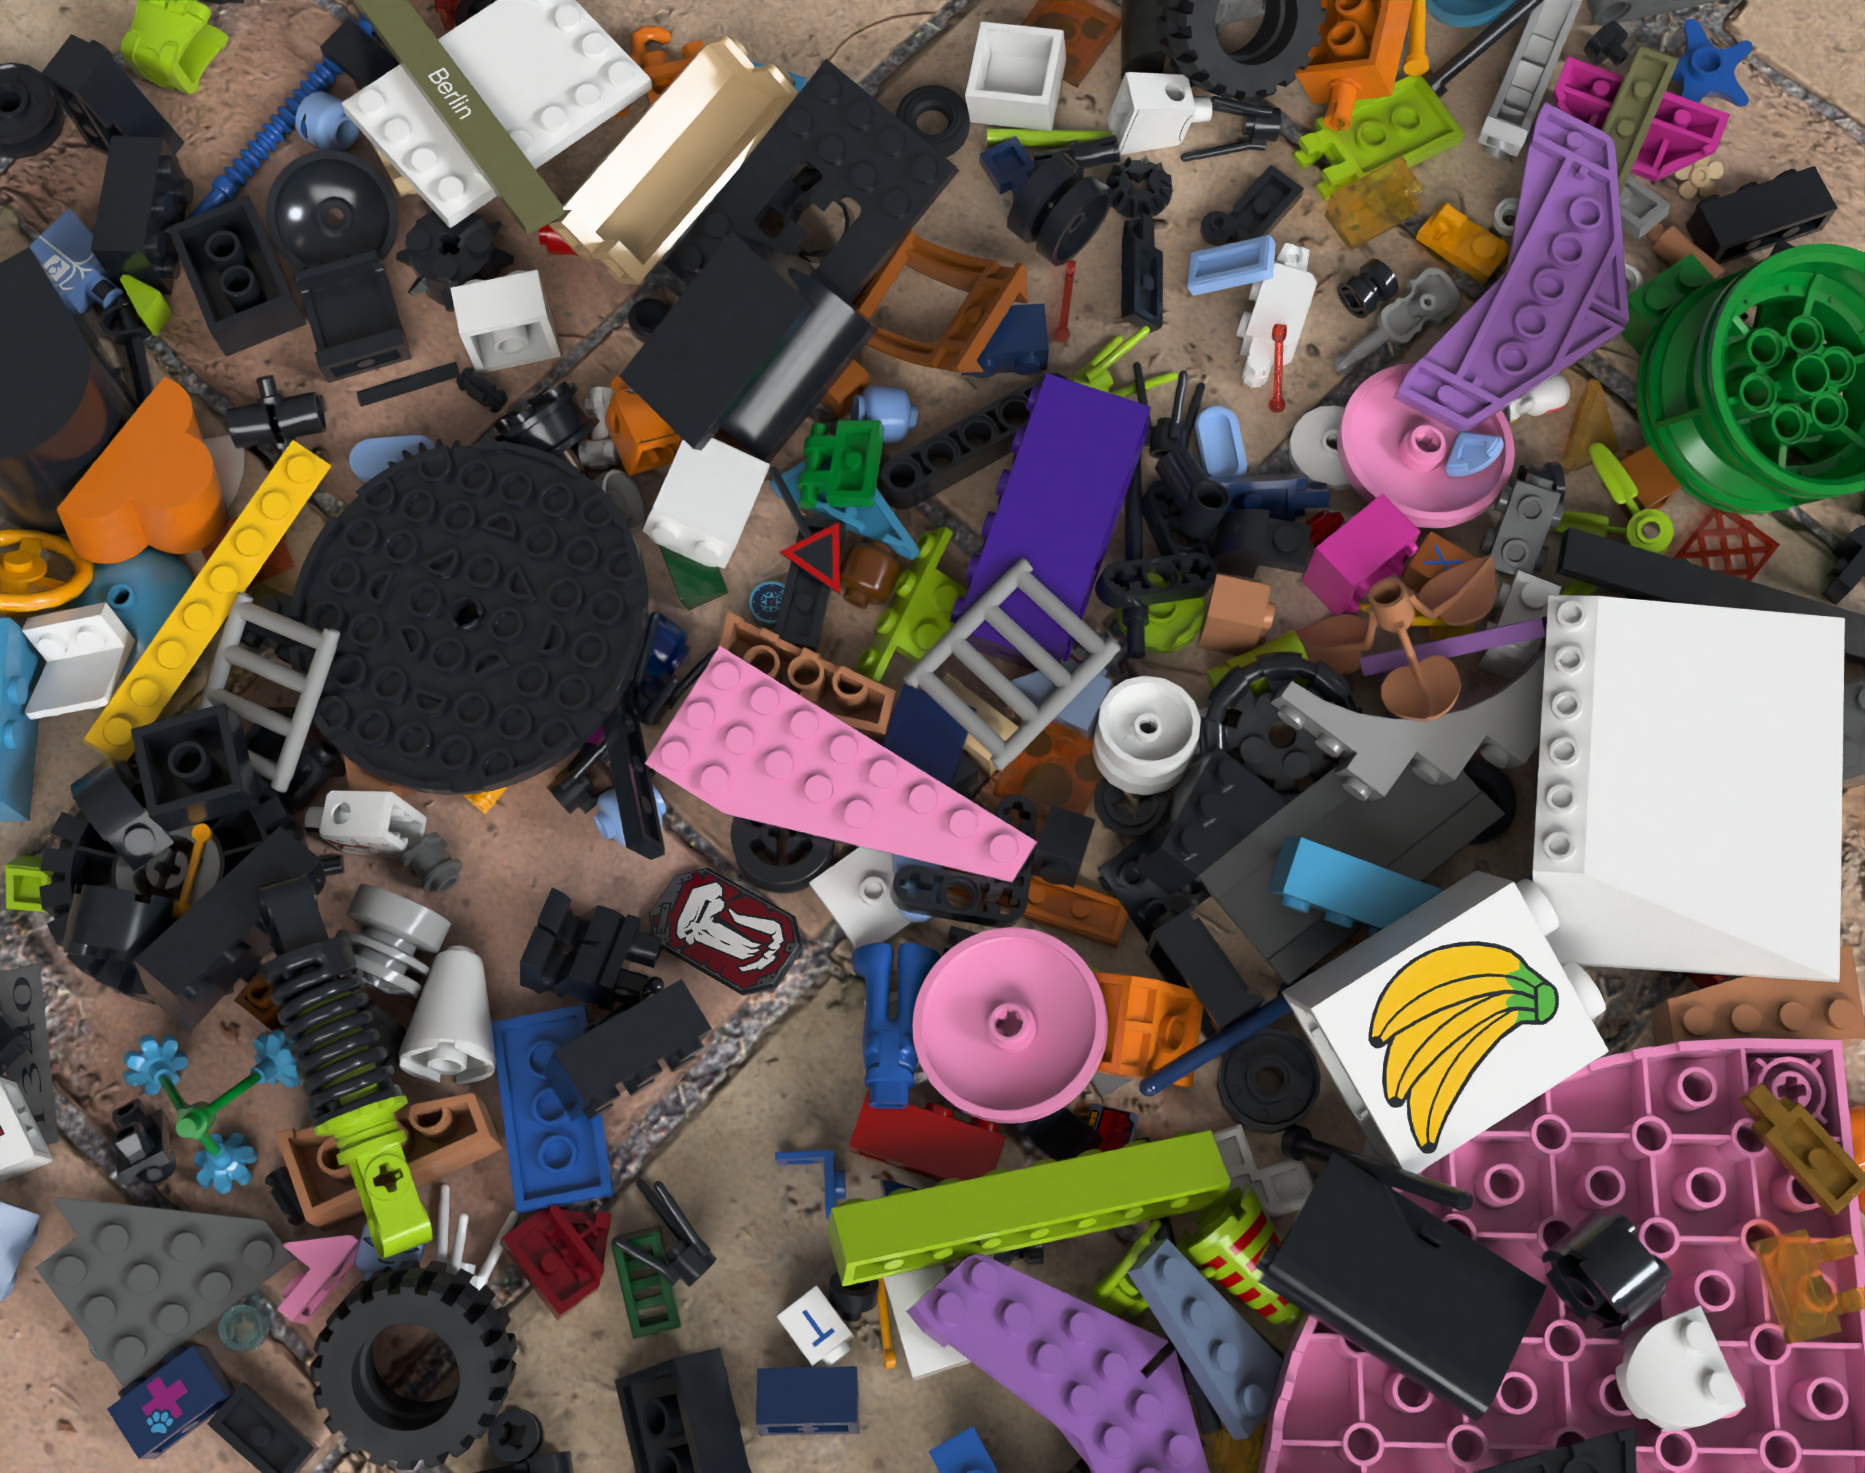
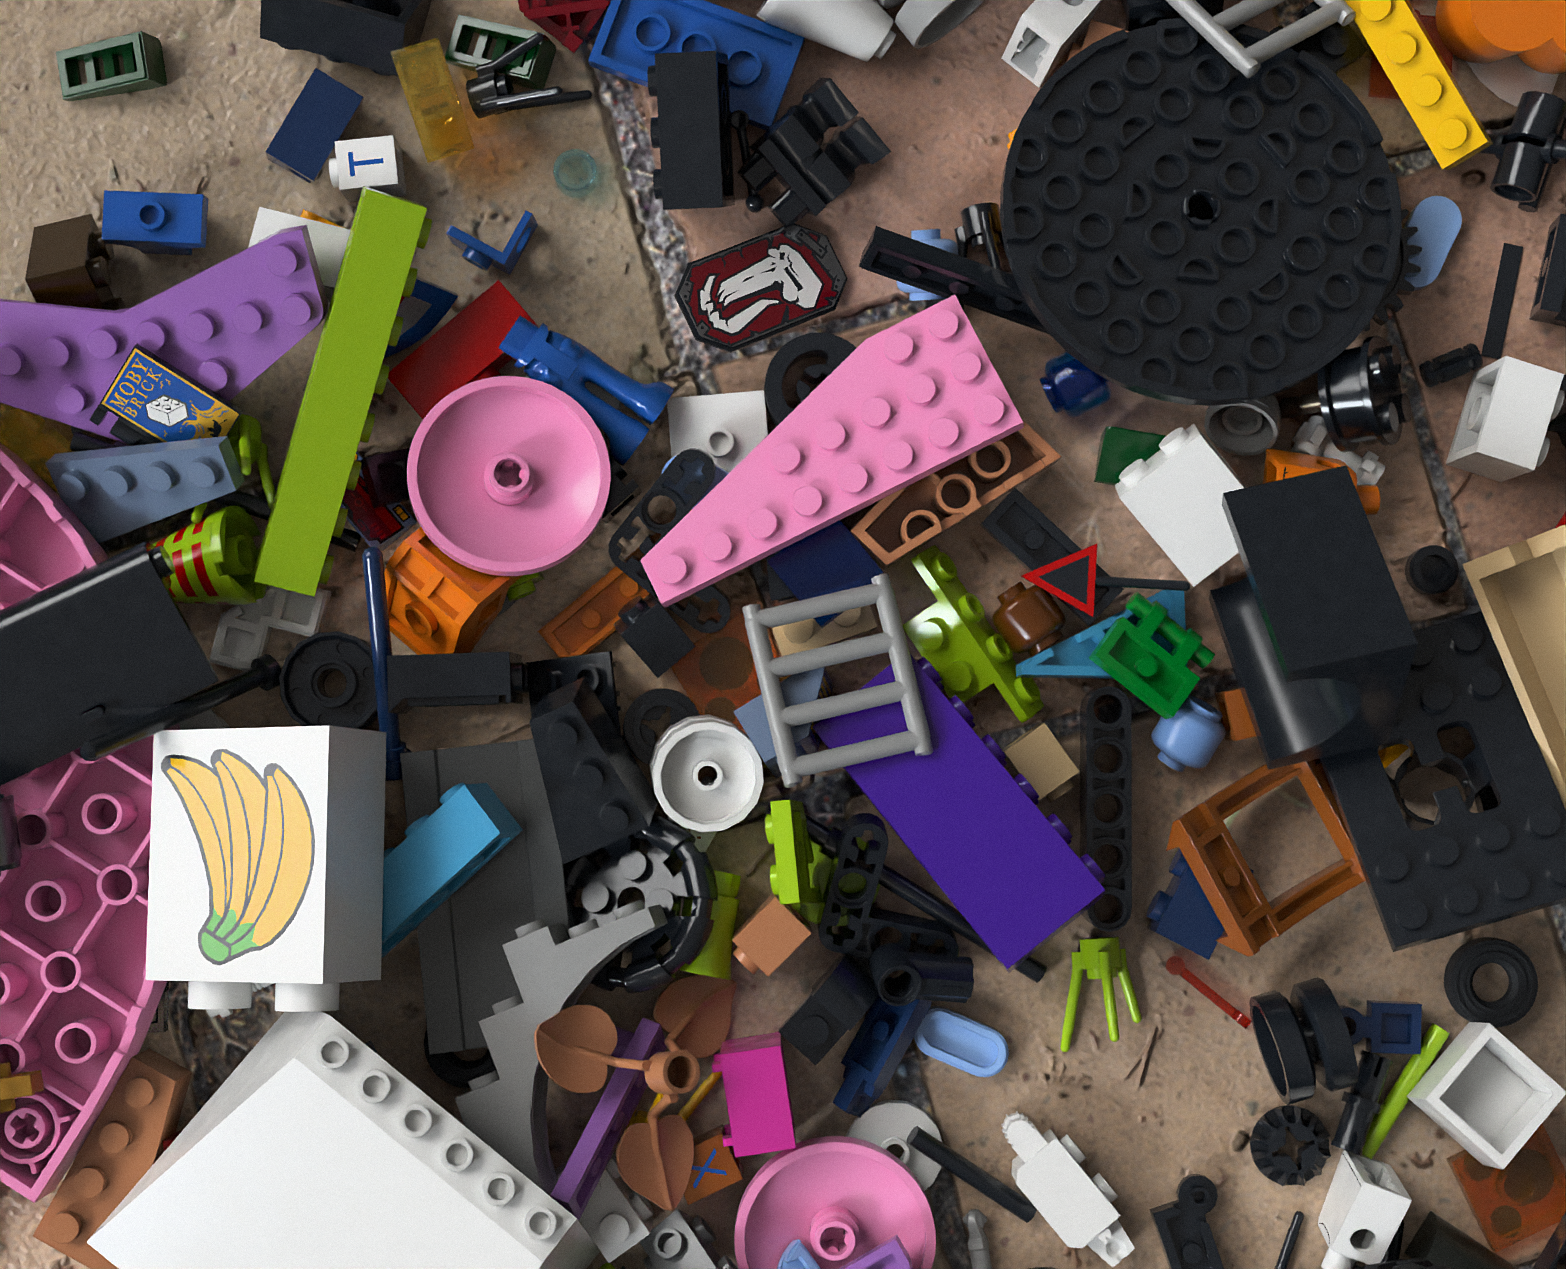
camera: 120 degrees right, 15 degrees up
(433, 864) = (984, 64): dark grey brick -> none
(656, 695) = (1026, 352): black plant -> none
(727, 1298) = (432, 100): none -> clear yellow slope
(729, 1156) = (561, 178): none -> clear light blue bush
(765, 603) = (1062, 509): tile -> none
(970, 504) = (1041, 762): none -> tan brick
(1135, 1357) = (162, 404): none -> piece
(1141, 274) = (1189, 1083): black hinge -> none
(1152, 641) = (793, 852): none -> lime wing
(1169, 432) = (997, 1001): black plant -> none
(1231, 265) = (1142, 1177): light blue tile -> none
(1279, 333) = (972, 1127): clear red hinge -> none
(1311, 382) = (971, 1174): none -> black bar
(1323, 525) = (816, 1084): red plate -> none

